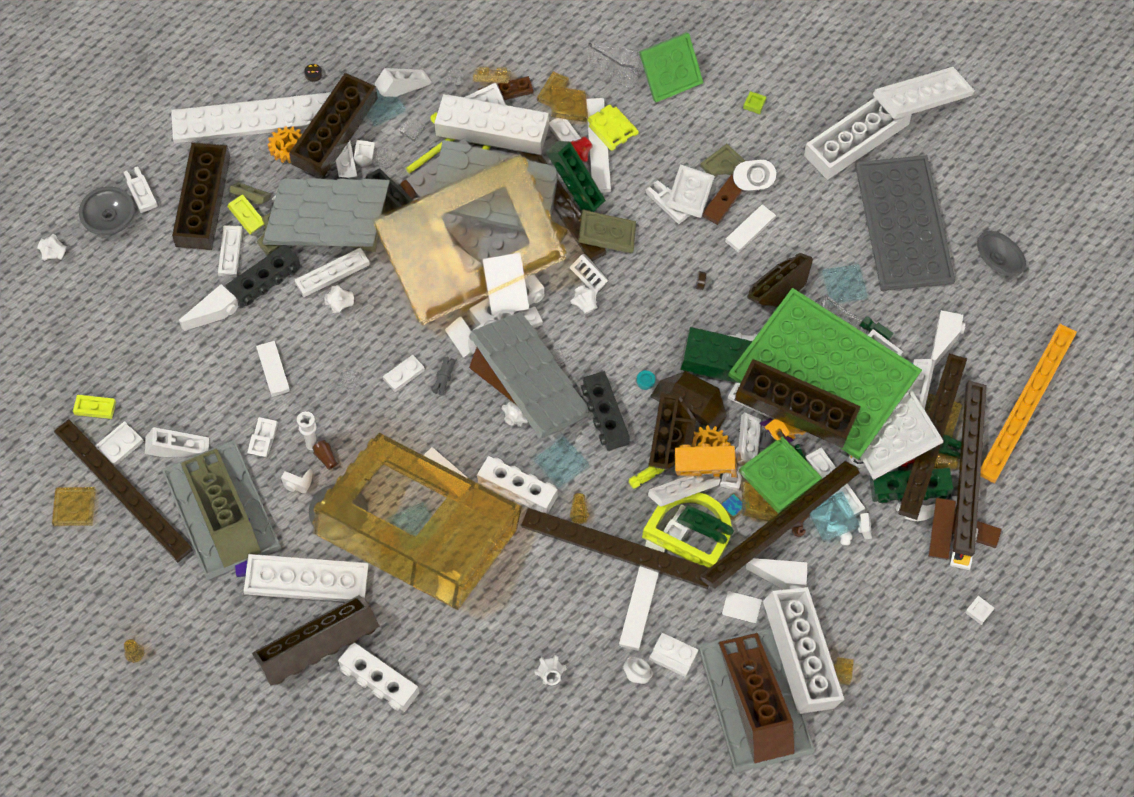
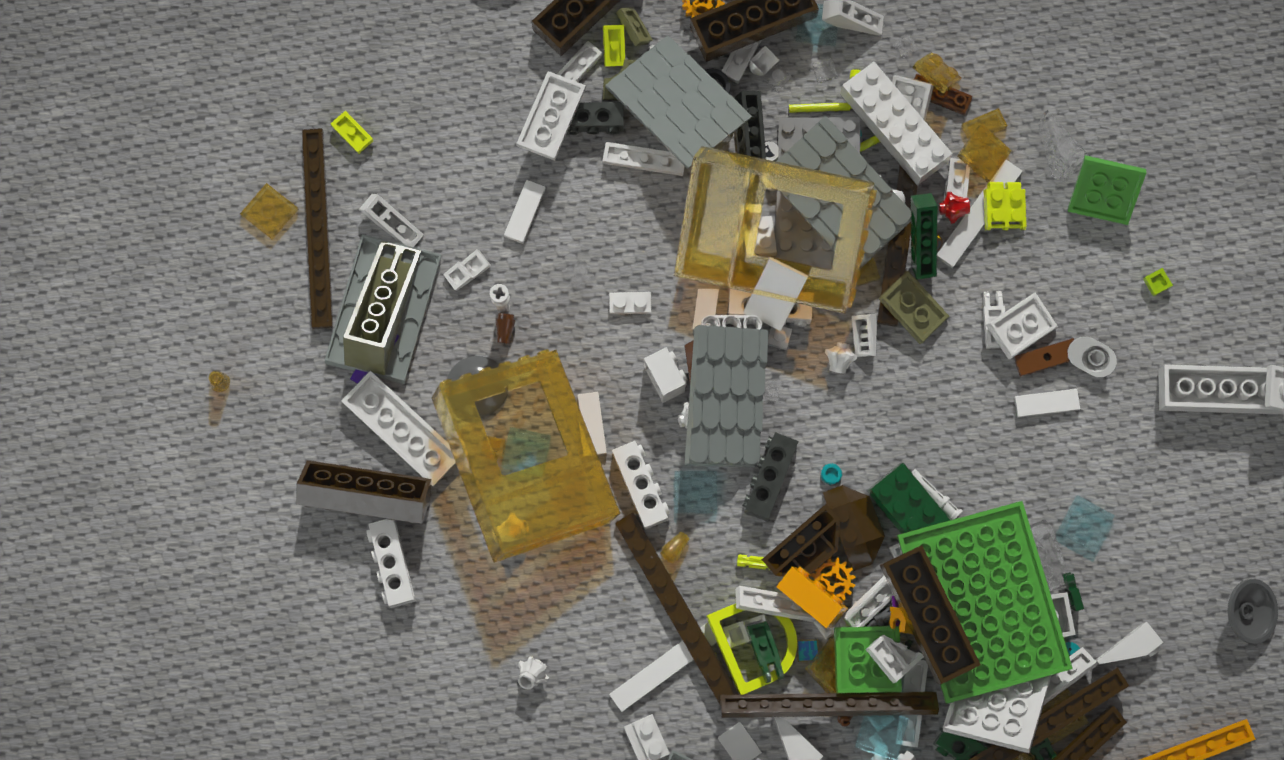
camera: 40 degrees right, 15 degrees up
(119, 443) = (347, 182): white plate -> none
(212, 308) = (508, 114): white slope -> none
(240, 286) = (551, 115): none -> white plate
(293, 482) = (457, 333): white plate -> none
(339, 299) = (628, 190): white rock -> none
(408, 189) = (772, 132): reddish brown arm -> none
(443, 376) = (661, 332): dark grey pin -> none
(471, 397) = (665, 375): none -> white brick
(637, 670) = (603, 731): white plate -> none
(701, 278) = (958, 419): dark brown tile -> none
(722, 161) = (1079, 319): olive tile -> none
(778, 282) = (1026, 478): dark brown wedge -> none
(796, 457) = (893, 657): none -> white wing
(904, 223) = (1192, 508): dark grey plate -> none

